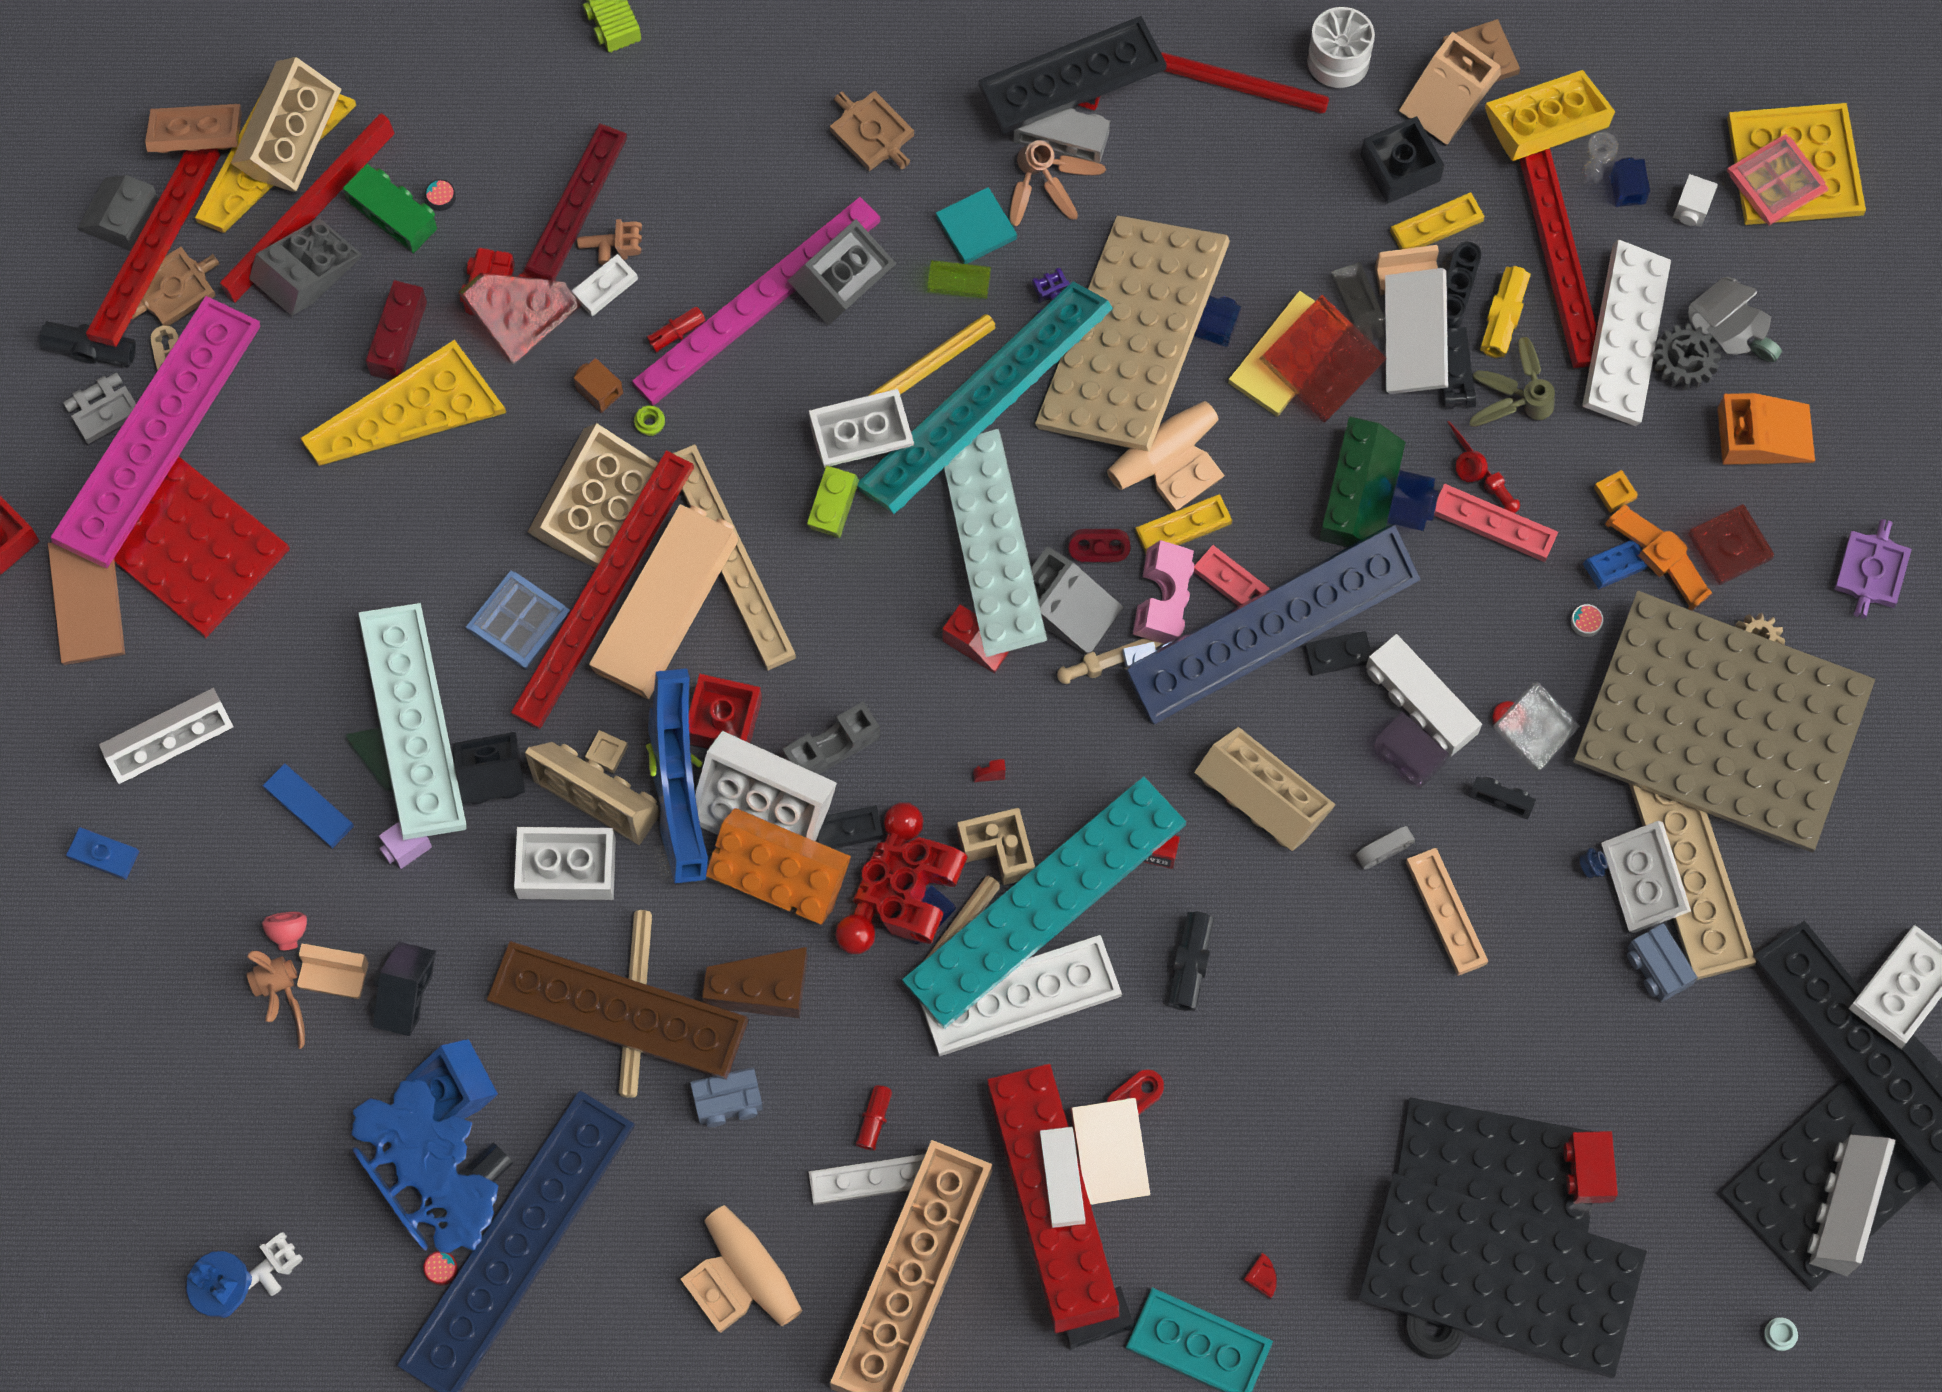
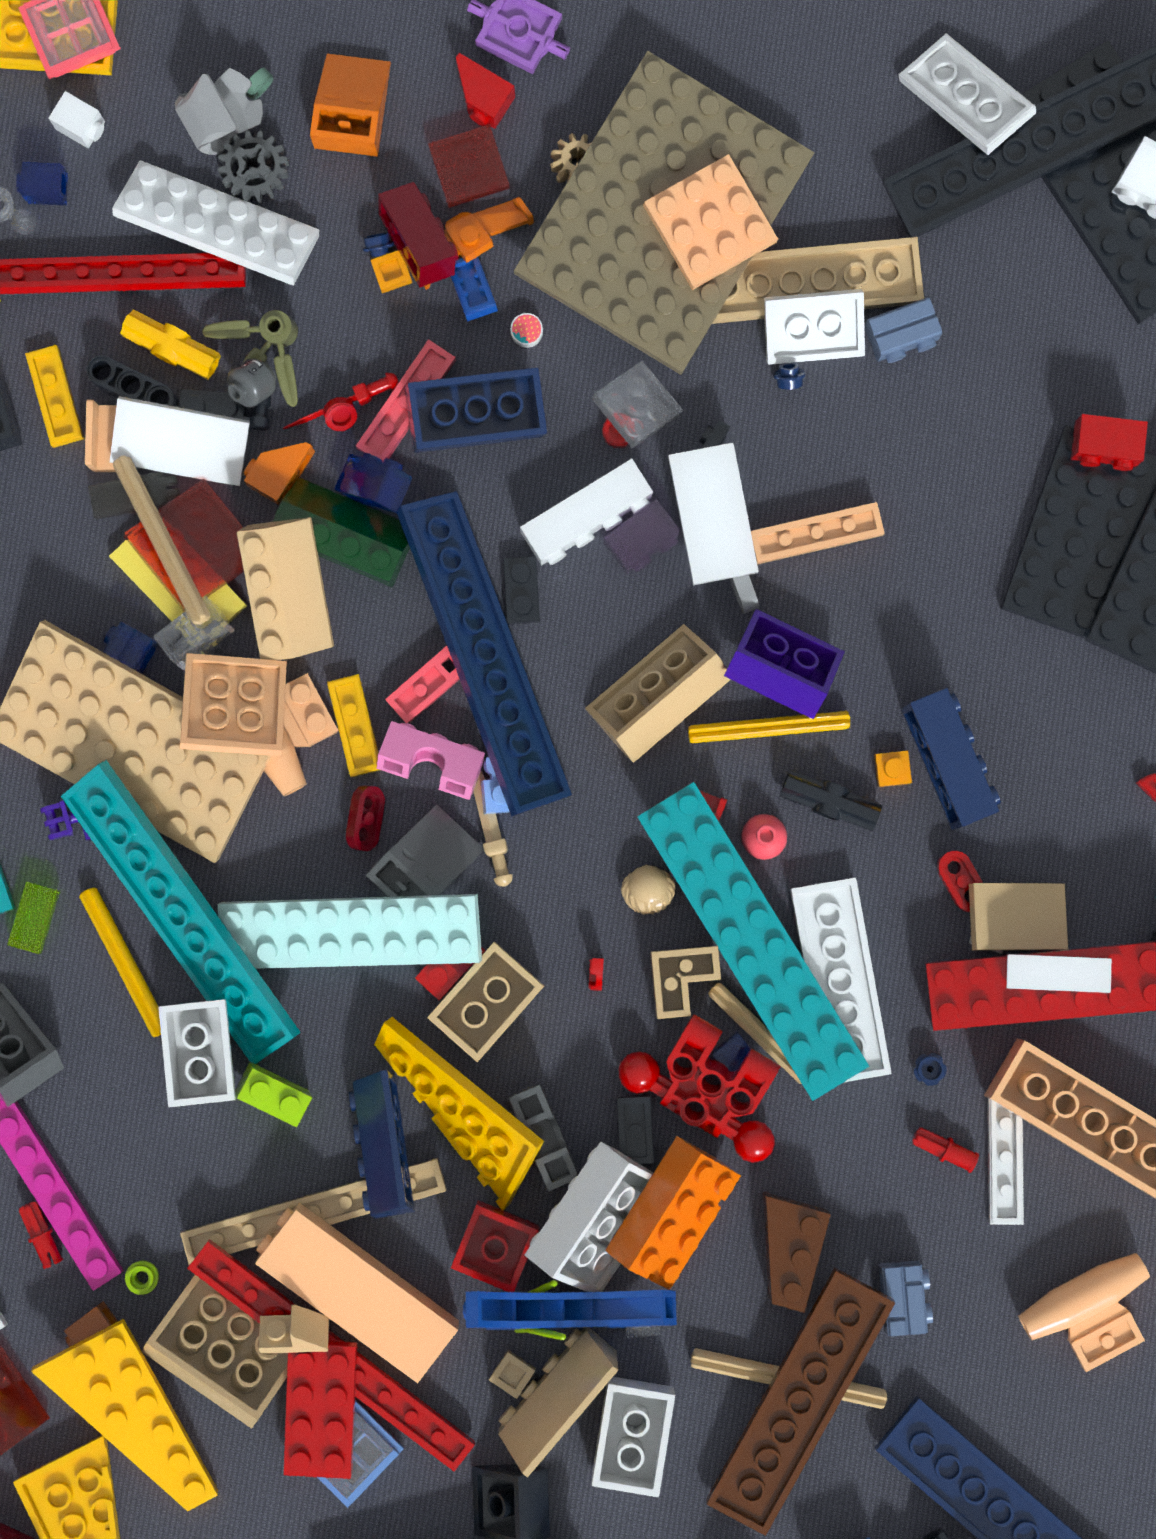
camera: 80 degrees left, 15 degrees up
(541, 416) = (122, 1399): none -> yellow wing
(554, 584) = (321, 1412): none -> red plate
(623, 548) = (293, 1333): none -> tan slope
(802, 601) = (382, 1145): none -> dark blue slope
(841, 670) = (465, 1114): none -> yellow wing
(943, 1086) = (938, 1072): none -> dark blue plate
(948, 673) = (485, 1001): none -> tan brick
(1075, 806) = (648, 889): none -> tan hair
(1145, 908) = (764, 836): none -> coral brick
(1182, 406) = (233, 705): none -> light nougat plate
(1232, 1017) = (893, 768): none -> light orange plate
(1242, 367) = (185, 637): none -> clear brick
(1251, 896) = (768, 727): none -> yellow axle
(1251, 1060) = (951, 758): none -> dark blue brick
(1297, 437) = (285, 588): none -> tan slope
(1314, 891) = (784, 664): none -> dark purple brick
(1321, 324) = (161, 540): none -> tan axle
(1408, 420) = (278, 470): none -> orange slope
(1444, 805) = (713, 513): none -> white tile
(1483, 381) = (251, 382): none -> dark grey head
(1498, 578) = (475, 410): none -> dark blue brick
(1638, 475) = (377, 244): none -> dark blue plate
(1654, 505) = (417, 234): none -> dark red brick
(1722, 758) = (710, 222): none -> light nougat plate
(1803, 546) = (484, 92): none -> red slope

